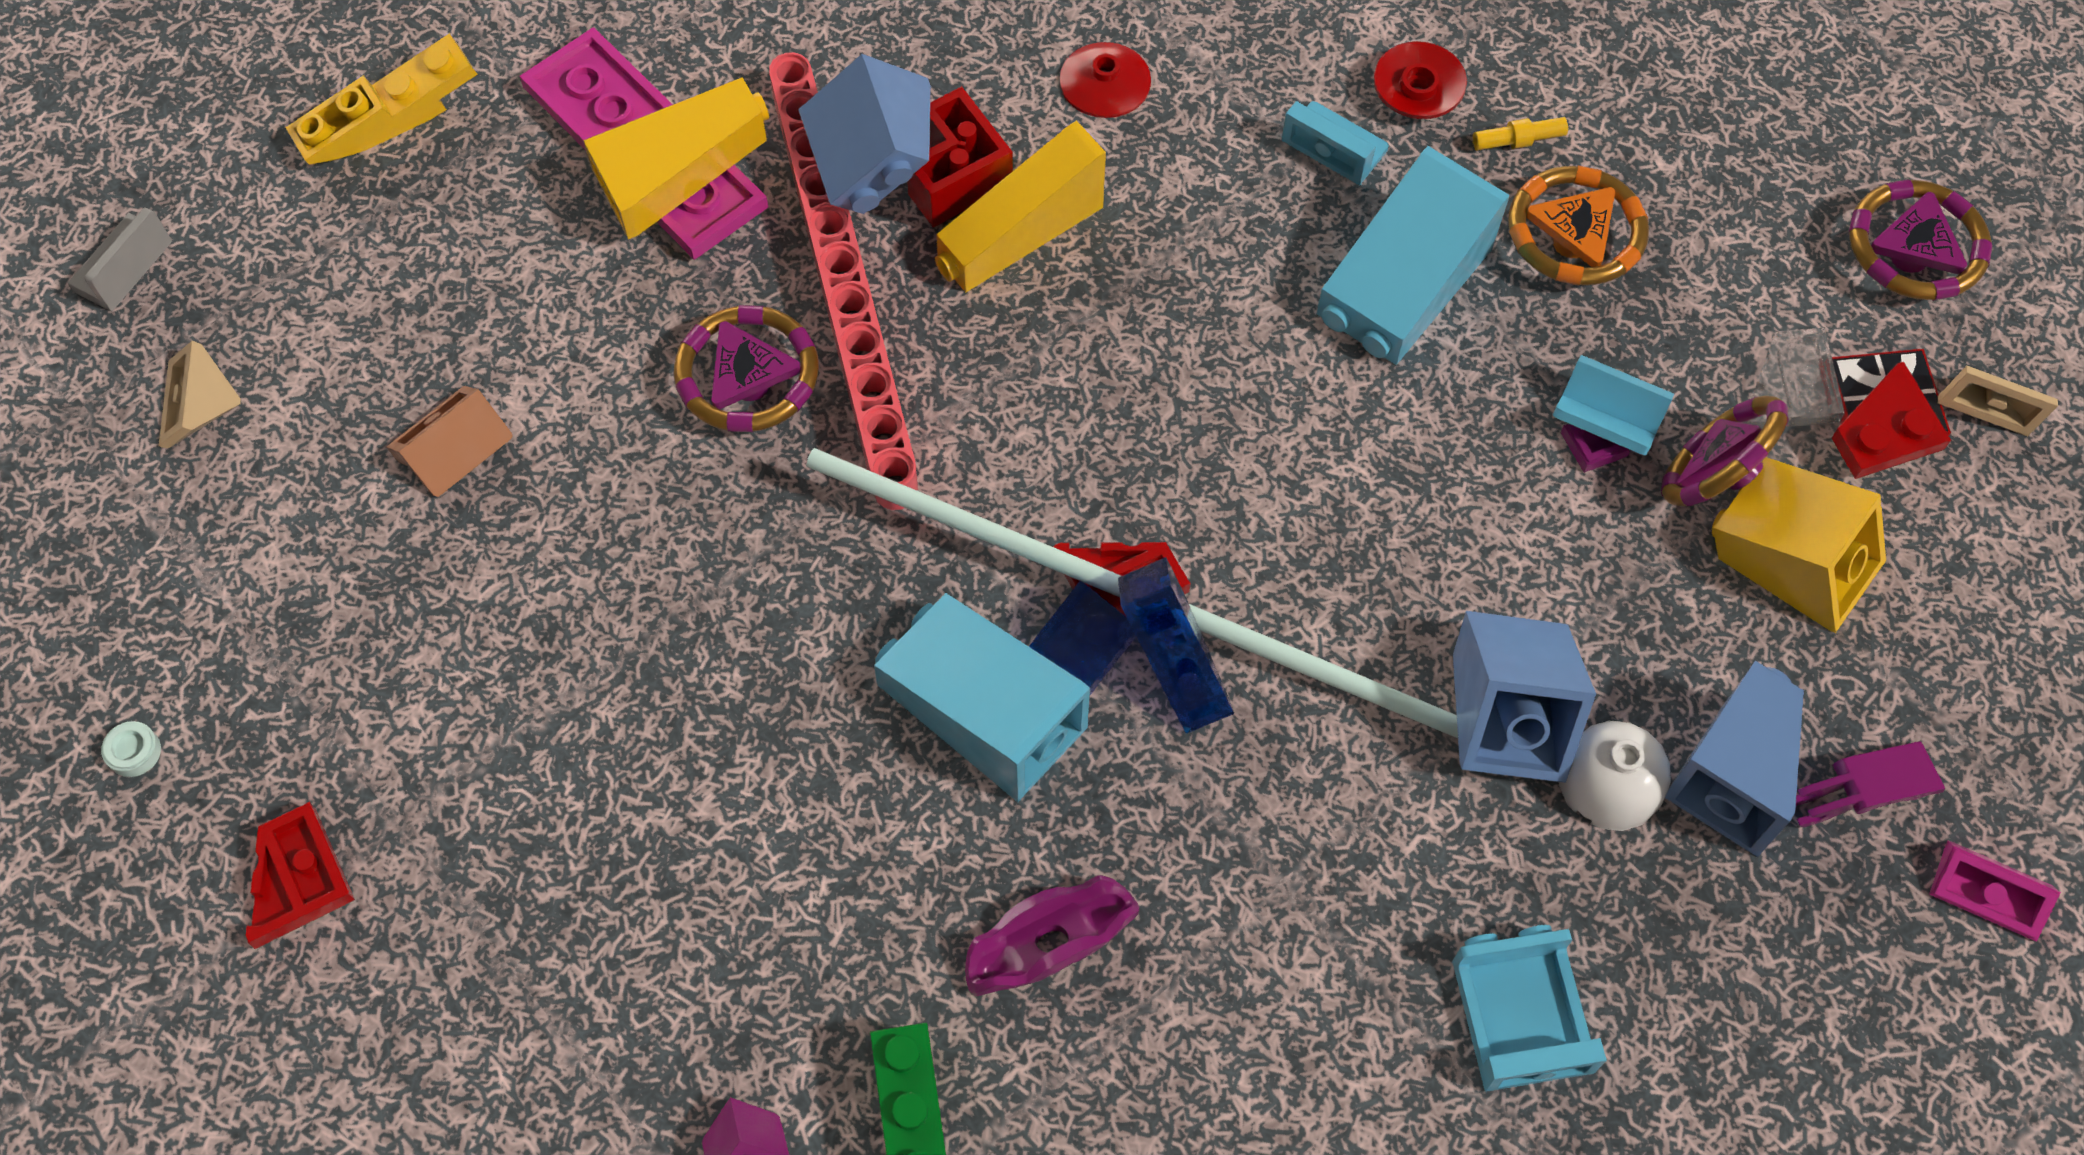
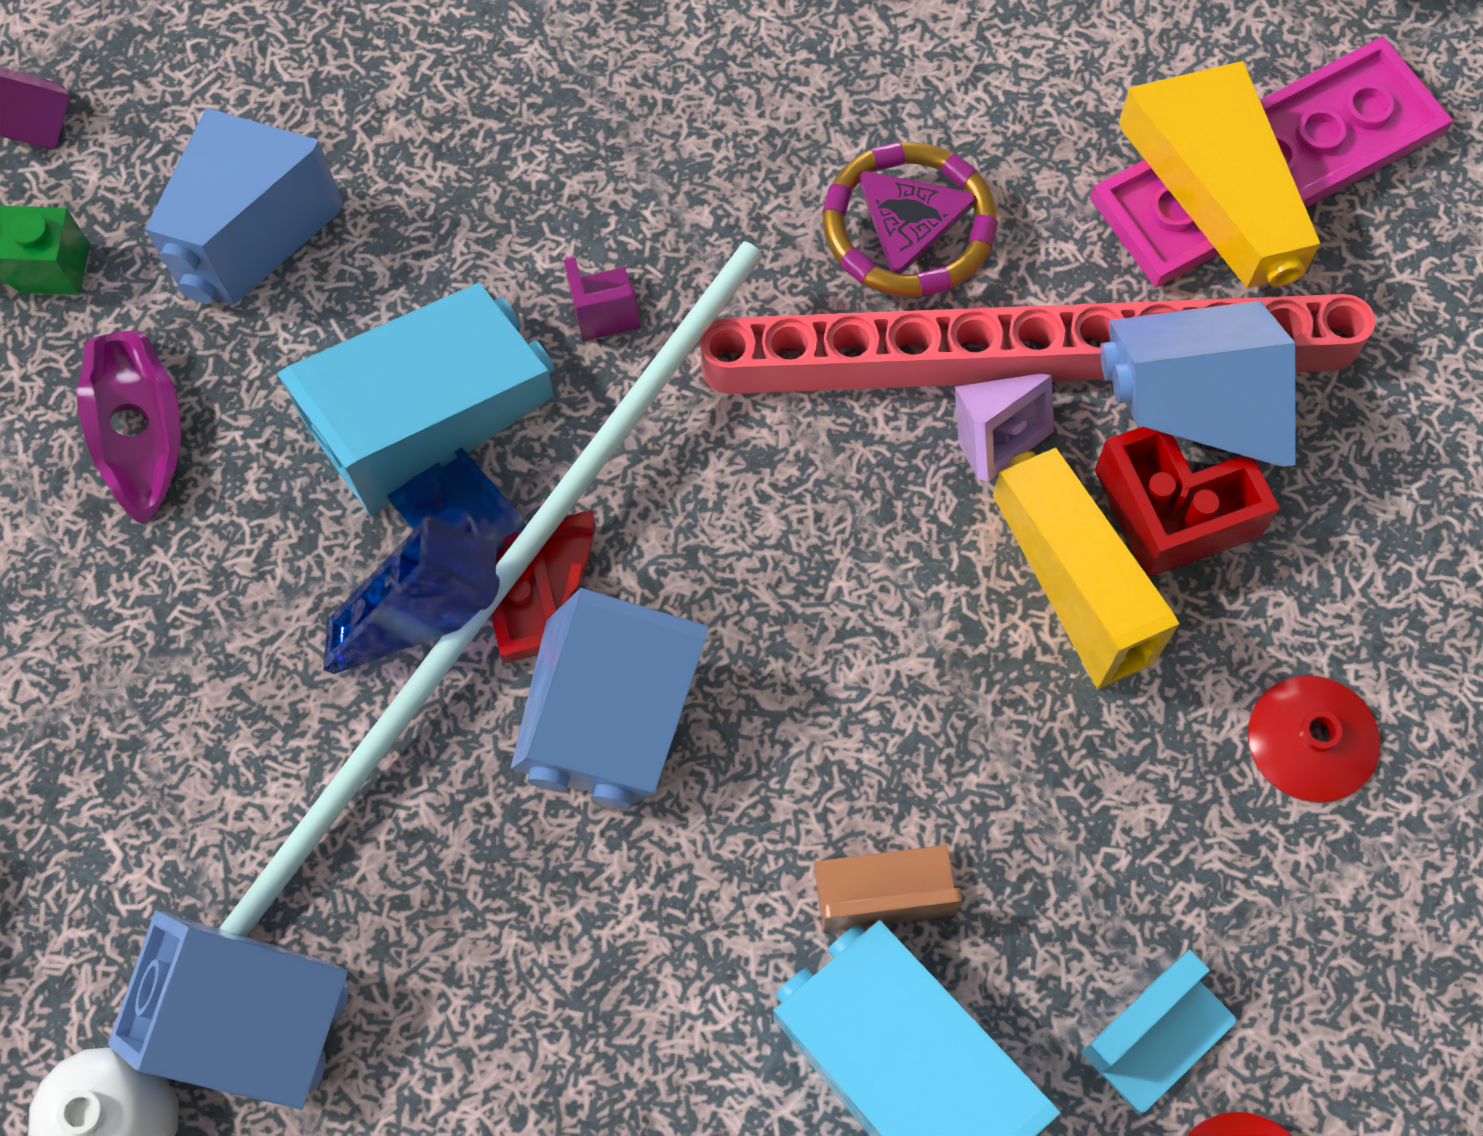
camera: 105 degrees right, 5 degrees up
(837, 884) = (240, 205): none -> medium blue slope
(859, 586) = (602, 301): none -> magenta panel
(918, 285) = (1003, 420): none -> lavender slope
(1214, 489) = (606, 698): none -> medium blue slope
(1292, 303) = (886, 888): none -> nougat panel

